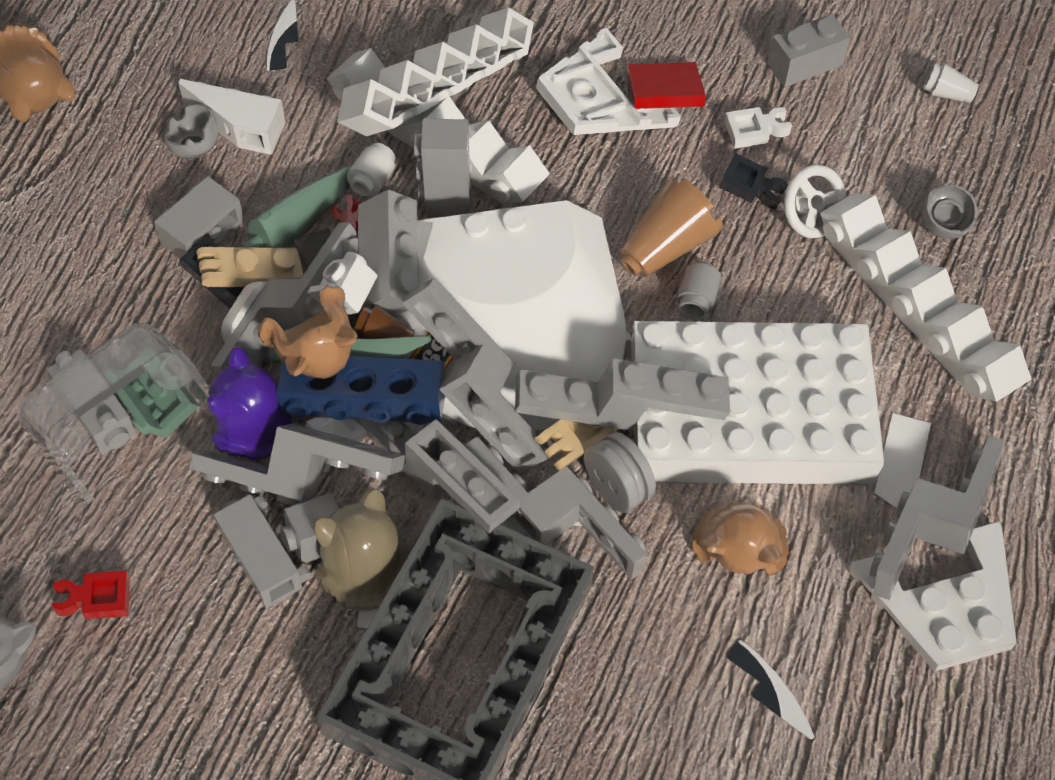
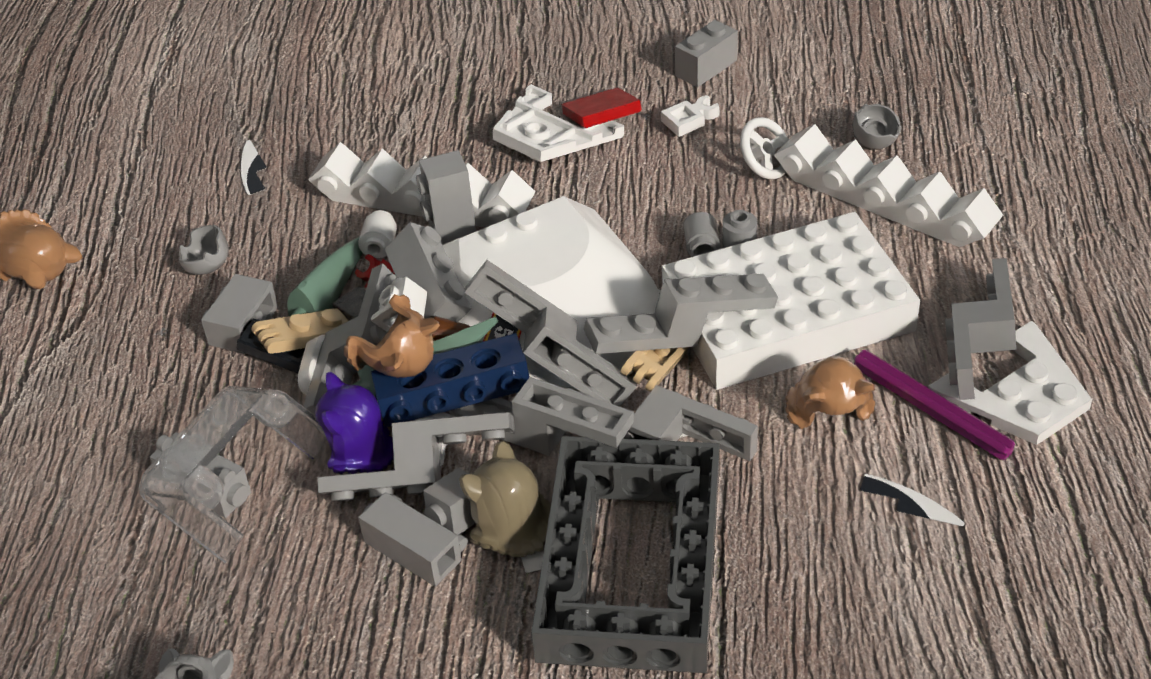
camera: 15 degrees left, 15 degrees down
(99, 596) = (275, 620): red plate -> none
(154, 408) = (262, 452): sand green bracket -> none
(241, 117) = (247, 228): white slope -> none
(435, 73) = (405, 141): white brick -> none
(620, 472) = (704, 374): light grey head -> none
(669, 228) = (658, 196): medium nougat cone -> none
(737, 301) = (738, 228): none -> light grey brick
(748, 180) = (703, 153): black plate -> none
(848, 586) = (935, 405): none -> magenta axle
(902, 457) = (932, 307): white sticker -> none
(949, 83) = (829, 46): white cone -> none

